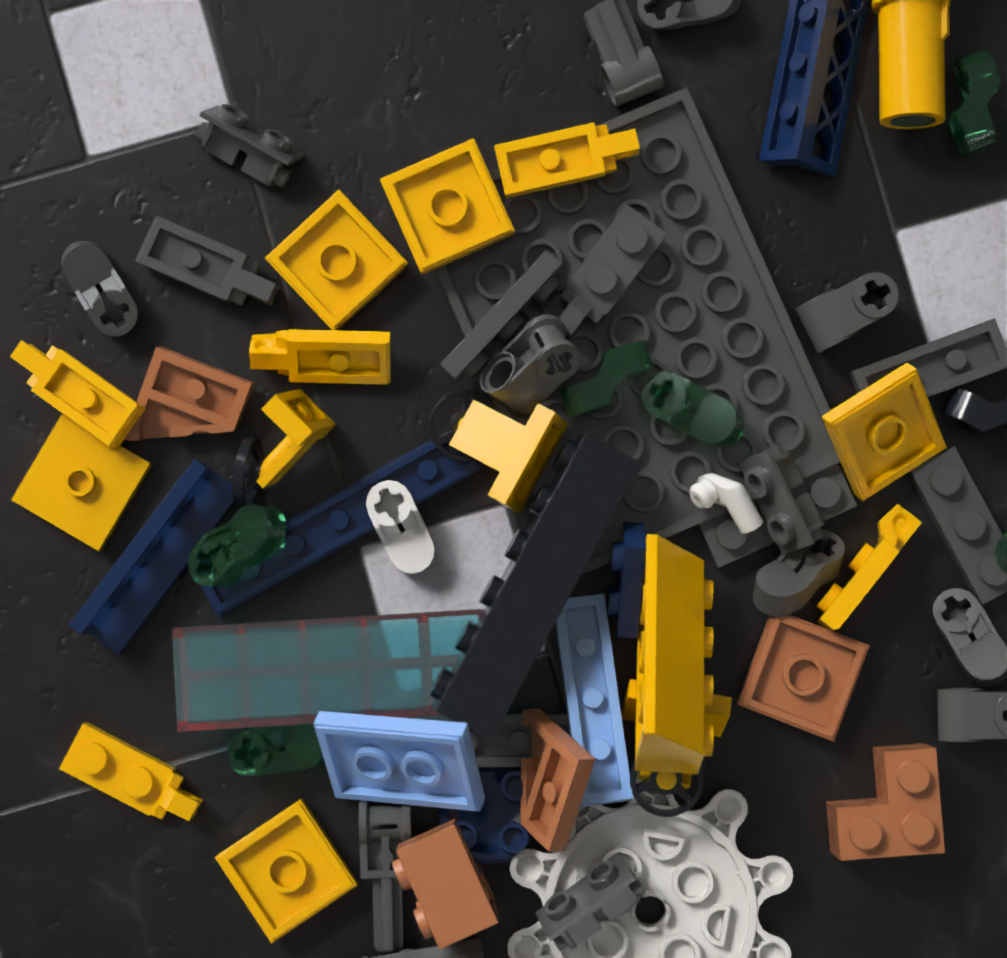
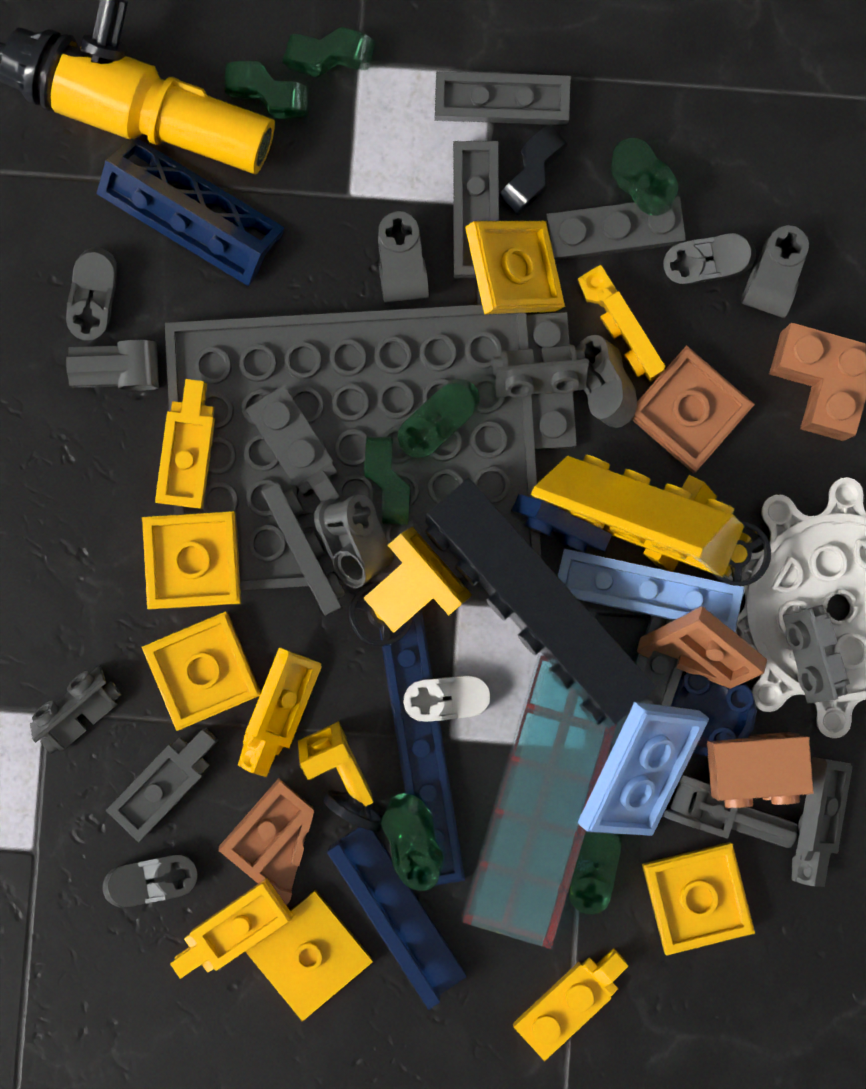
camera: 75 degrees left, 0 degrees up
(729, 494) = (520, 413): white arm -> none

